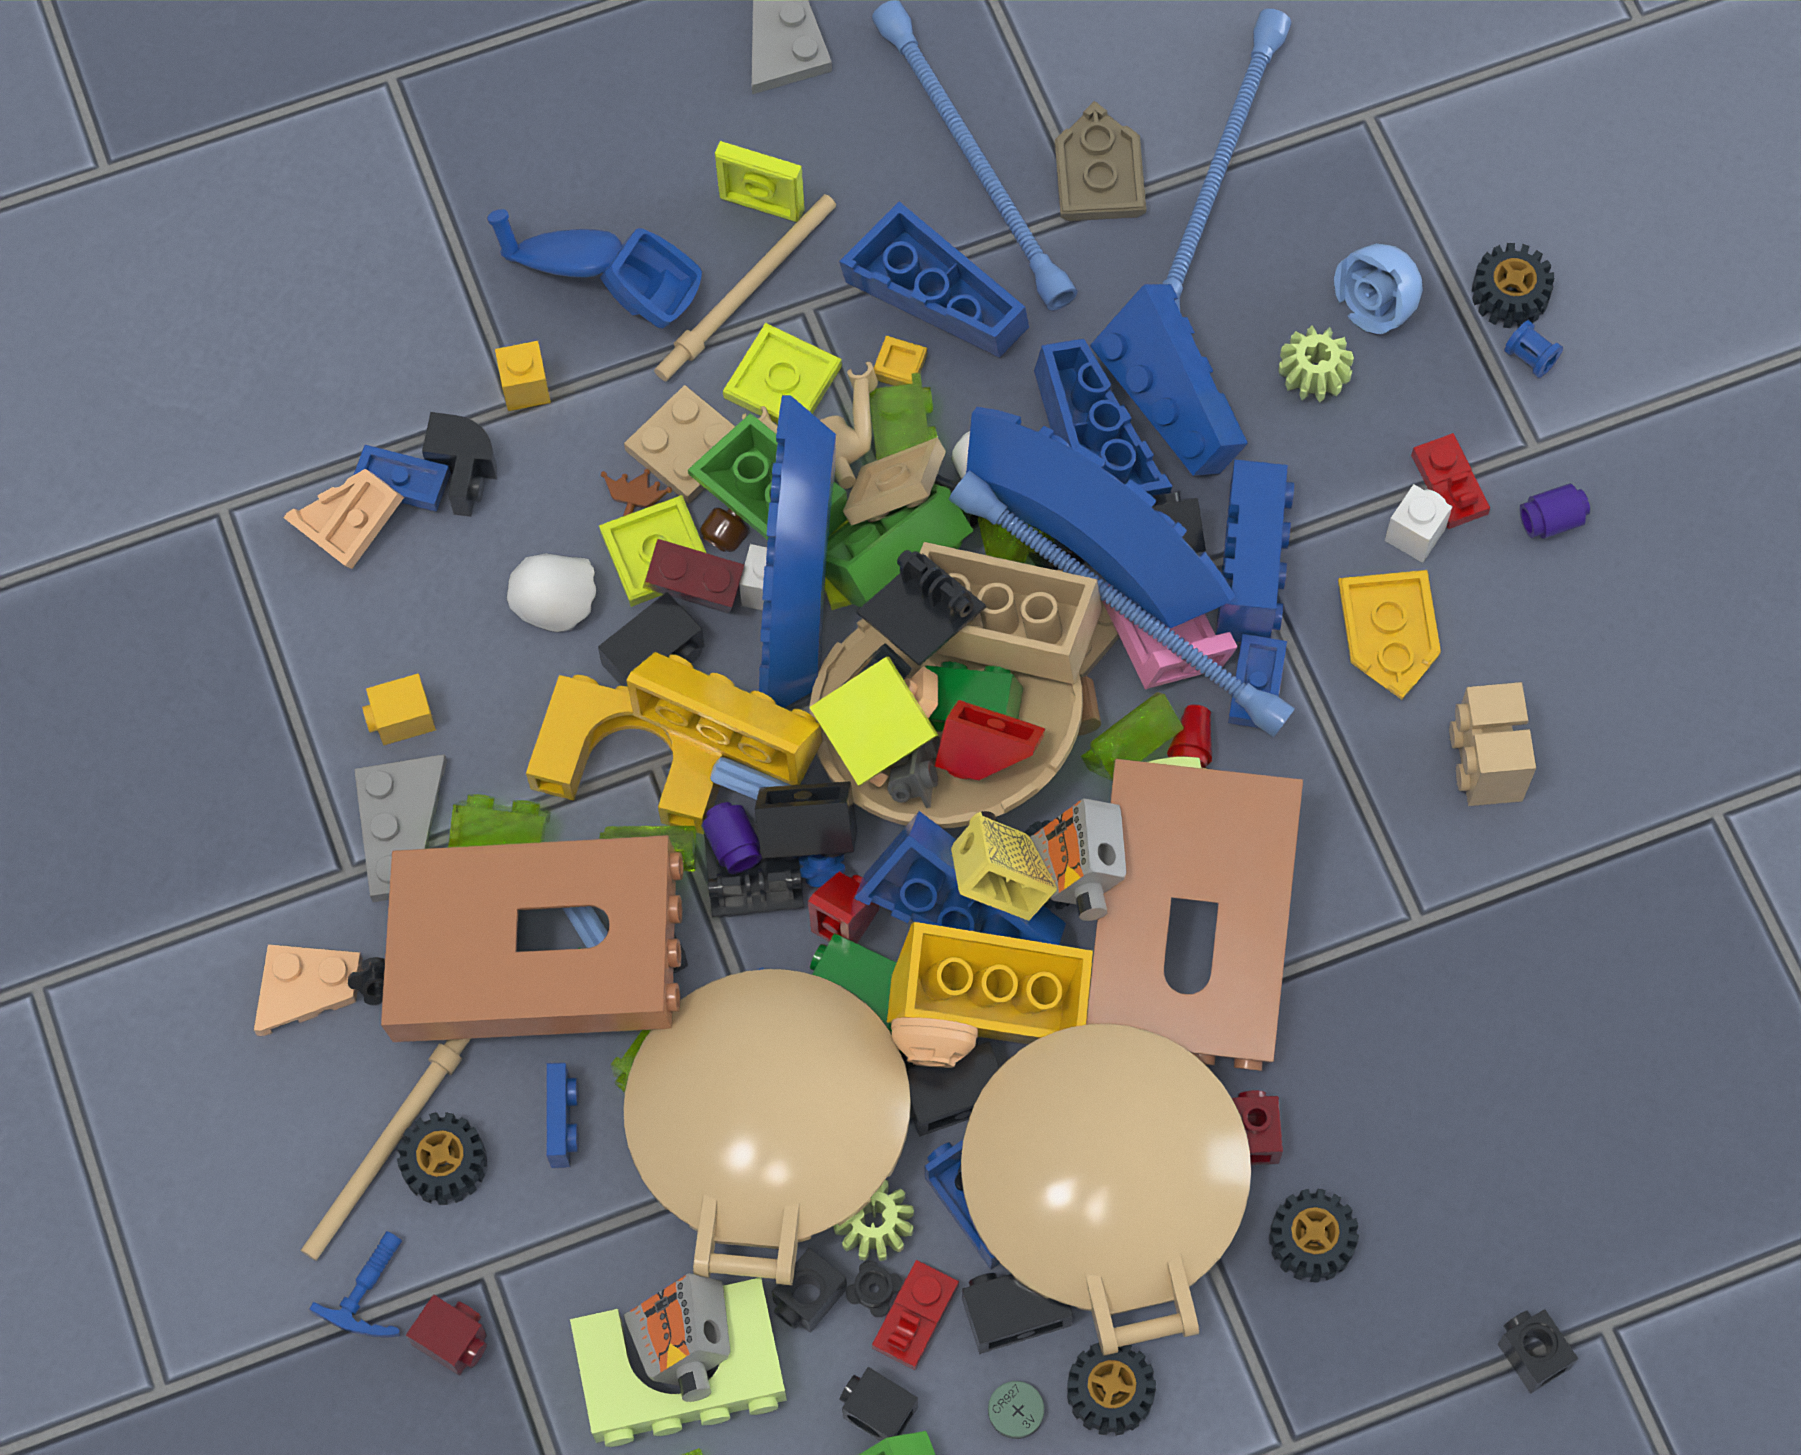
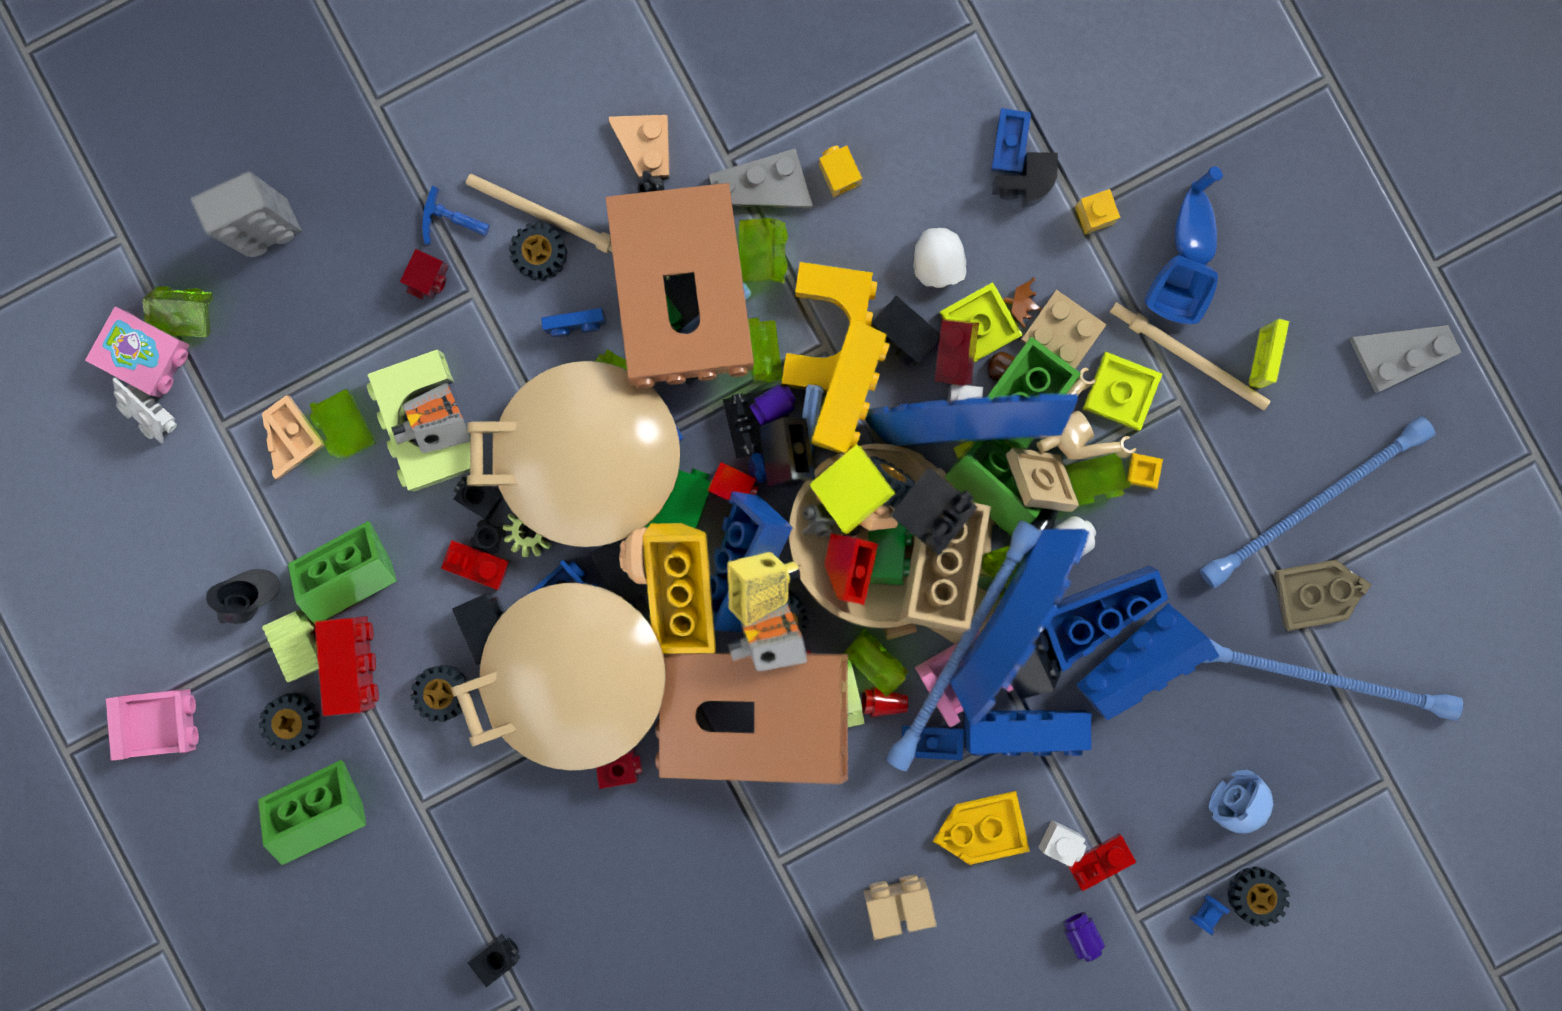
camera: 85 degrees right, 20 degrees up
(348, 516) = (975, 110): light nougat wing -> none
(877, 1405) = (411, 549): black brick -> none
(932, 280) = (1209, 482): blue wedge -> none
(1016, 1409) = (422, 635): sand green piece -> none
(1316, 348) = (1169, 771): yellowish green gear -> none
(1325, 1223) = (545, 820): black wheel -> none

